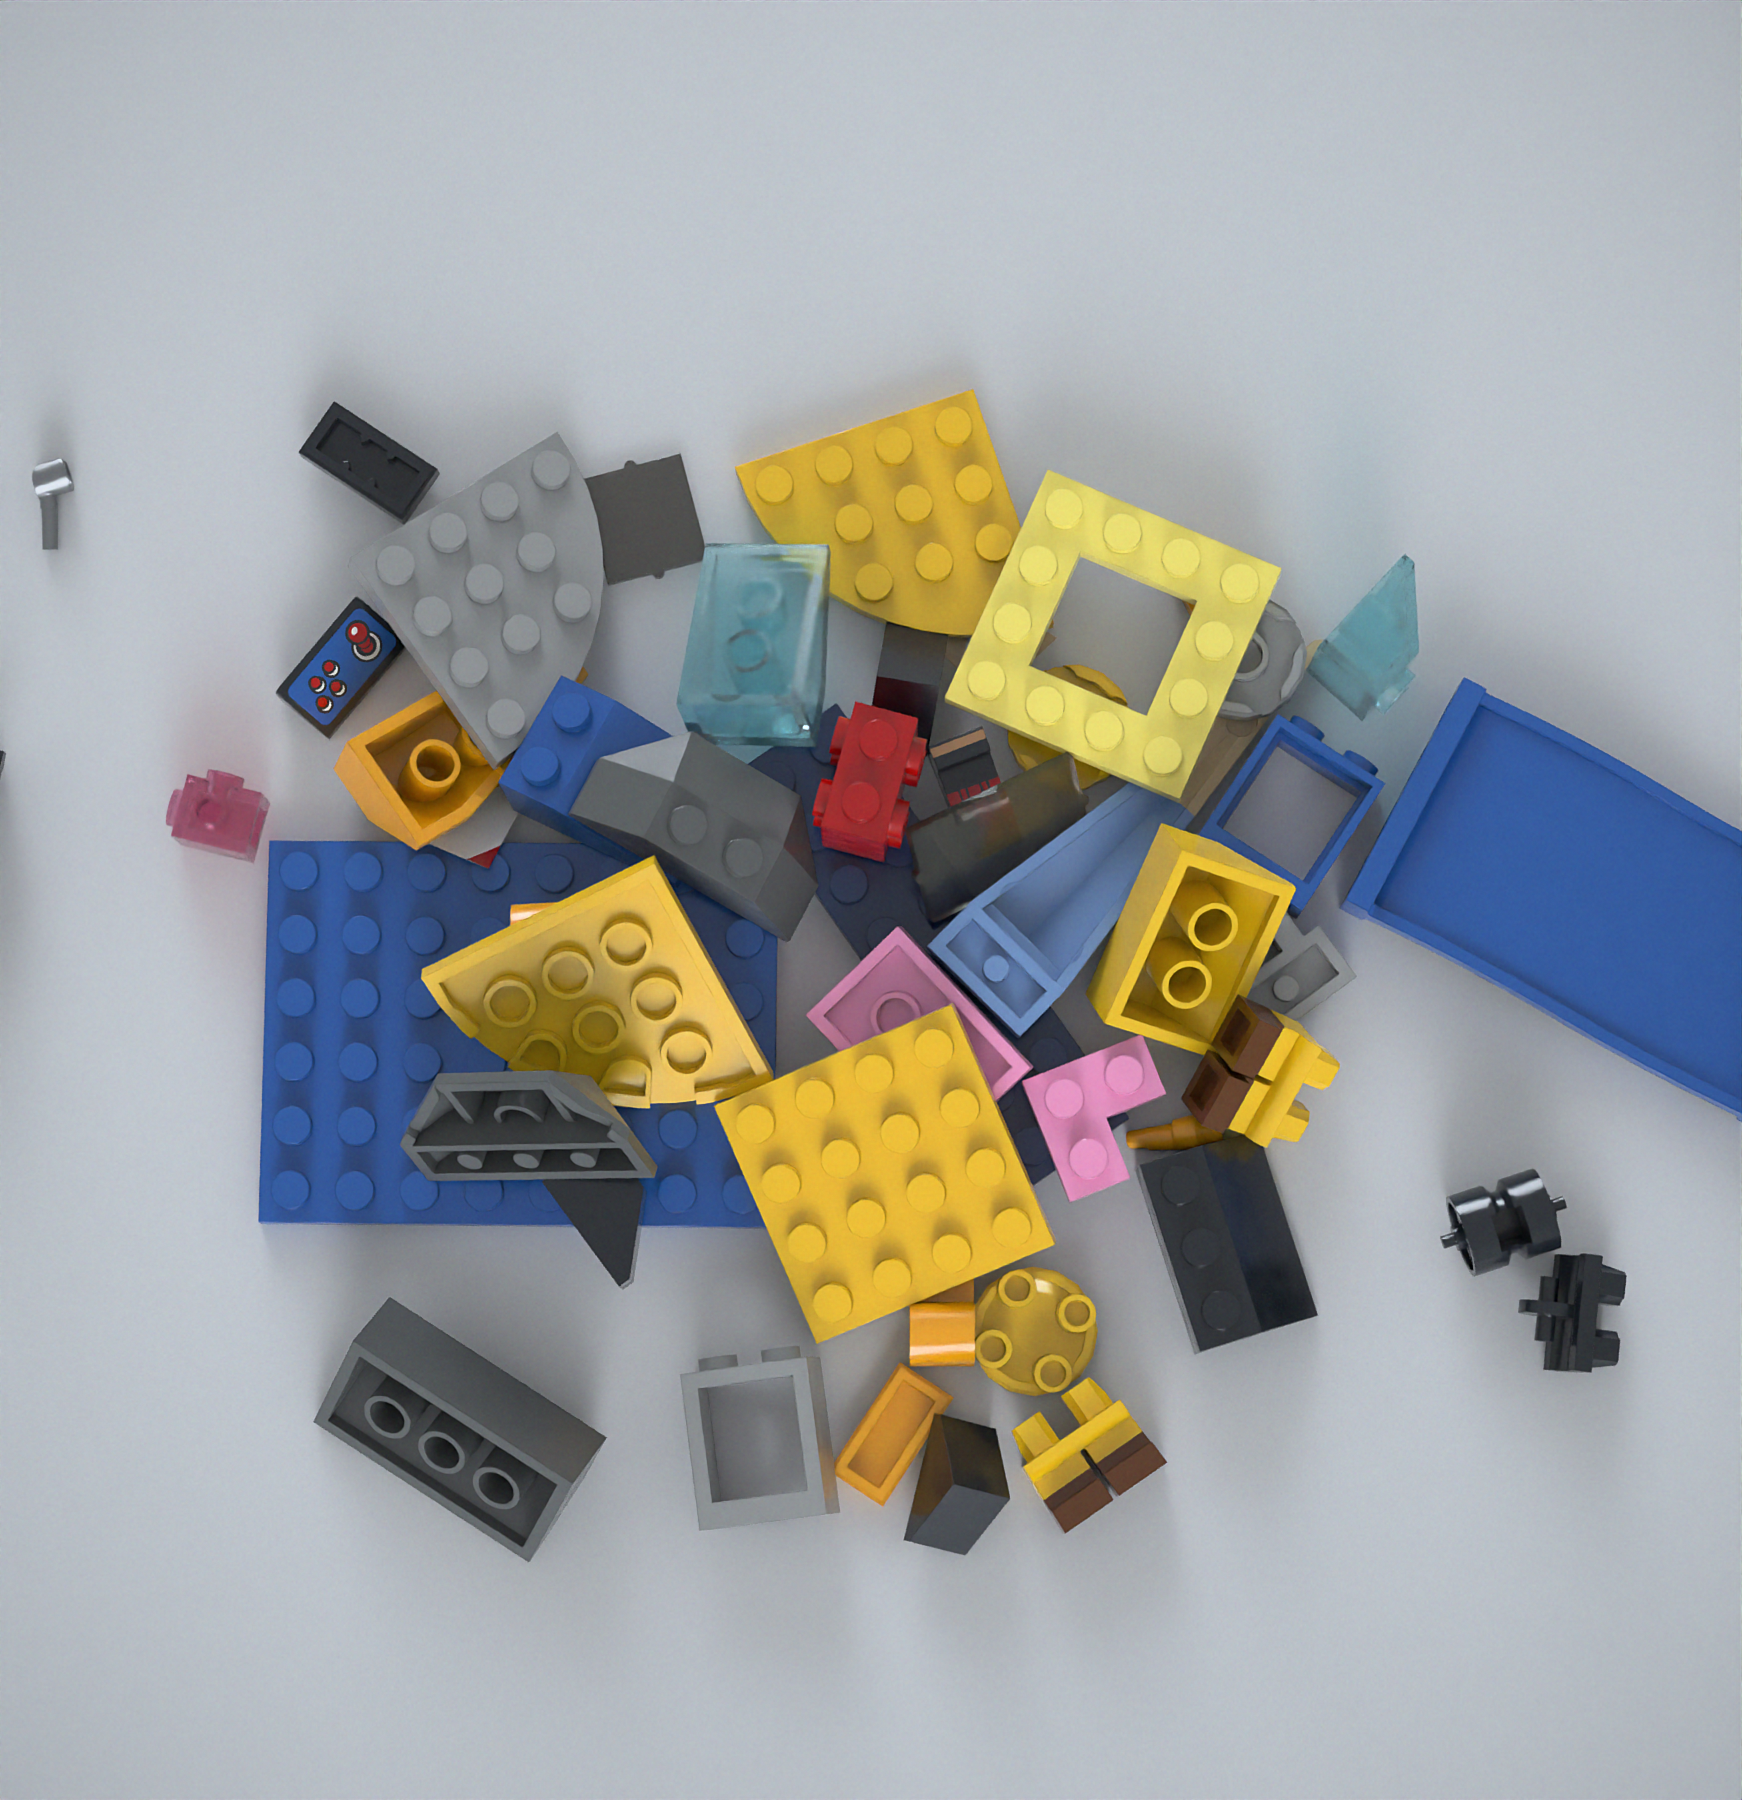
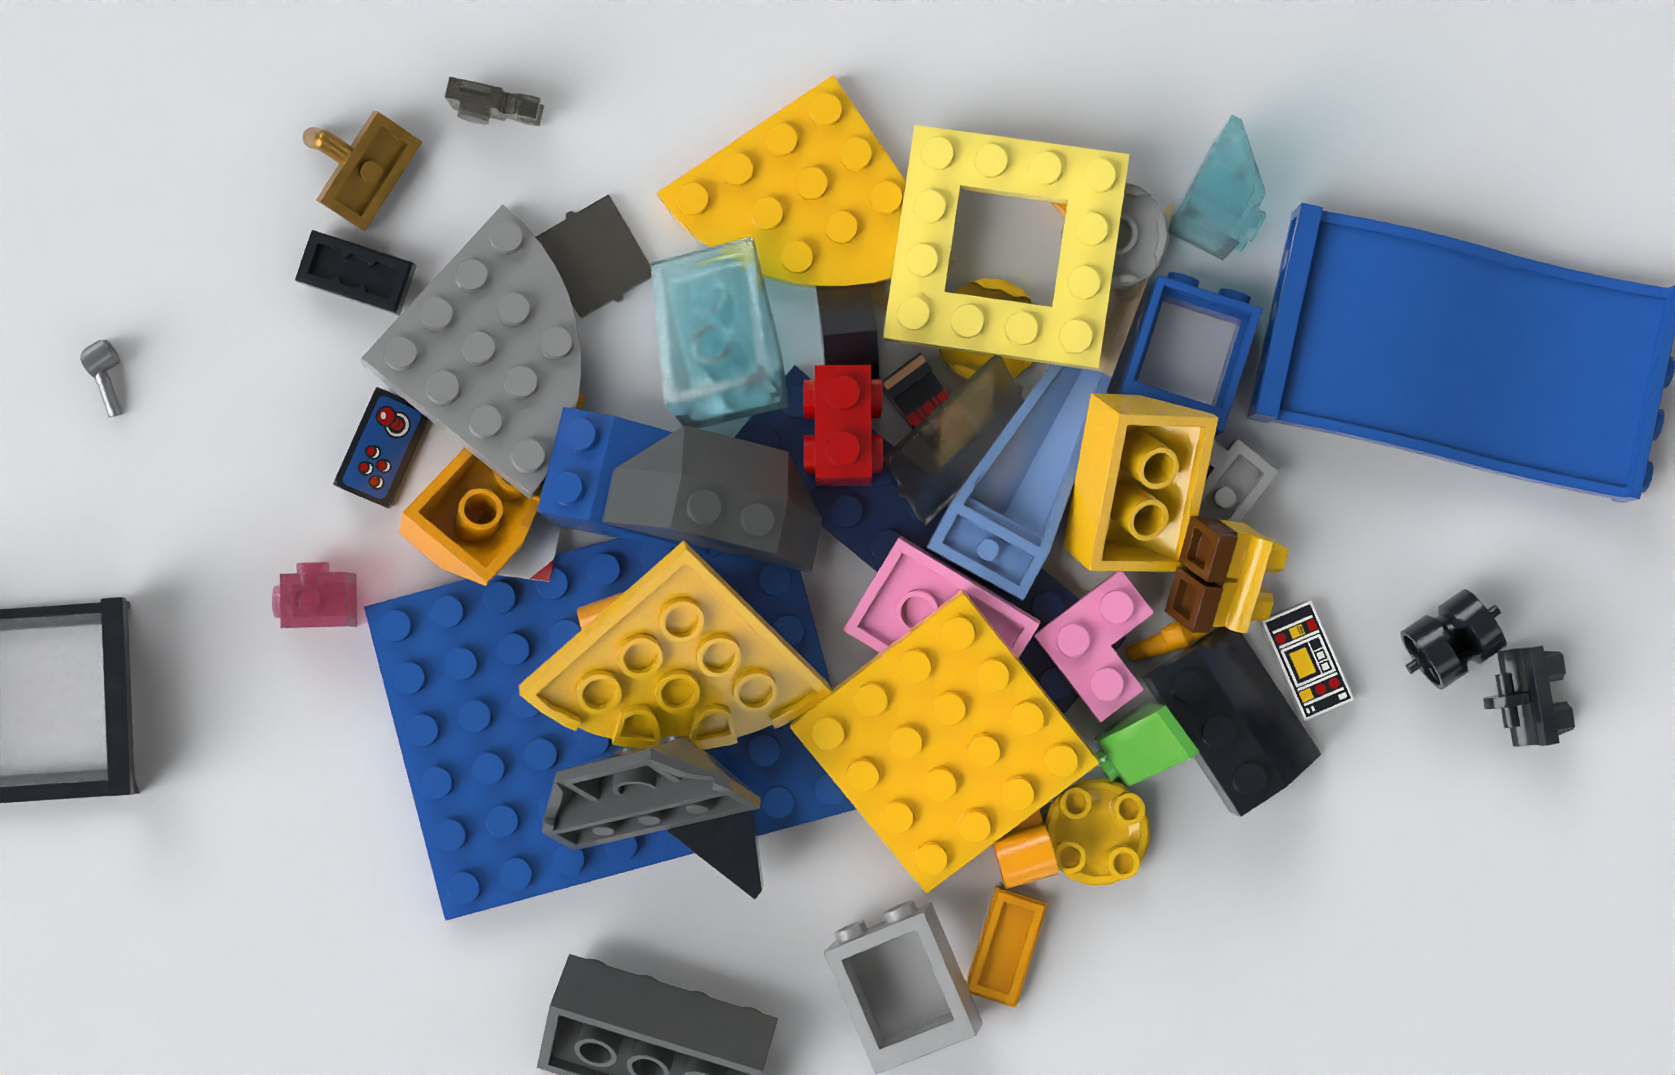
camera: 15 degrees left, 5 degrees up
(414, 349) = (365, 168): none -> pearl gold plate
(566, 311) = (481, 102): none -> clear smoke plate
(958, 1486) = (1072, 974): black slope -> none
(1108, 1237) = (1143, 744): none -> bright green slope
(1108, 1438) = (1183, 903): yellow hips -> none
(1330, 1202) = (1306, 660): none -> tile

